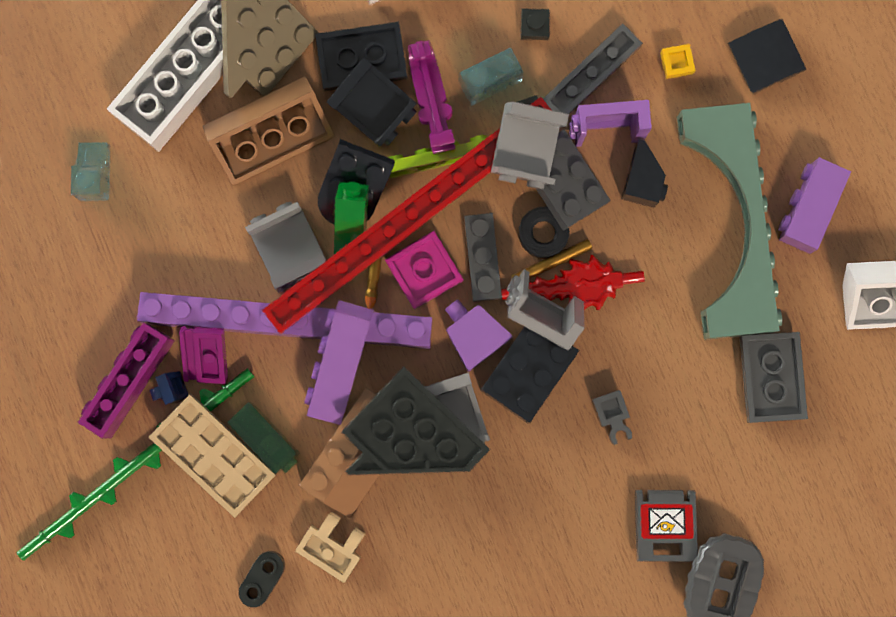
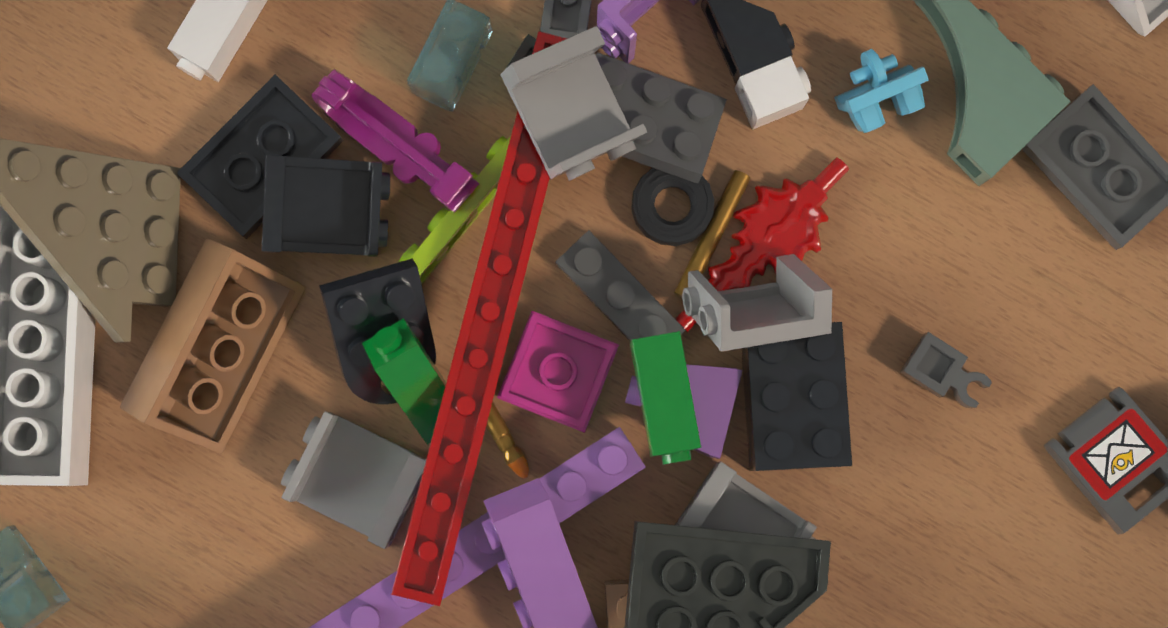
camera: 40 degrees left, 0 degrees up
(464, 319) = (665, 396): none -> green brick
(636, 214) = (773, 92): none -> white brick
(702, 259) = (900, 85): none -> medium azure hips

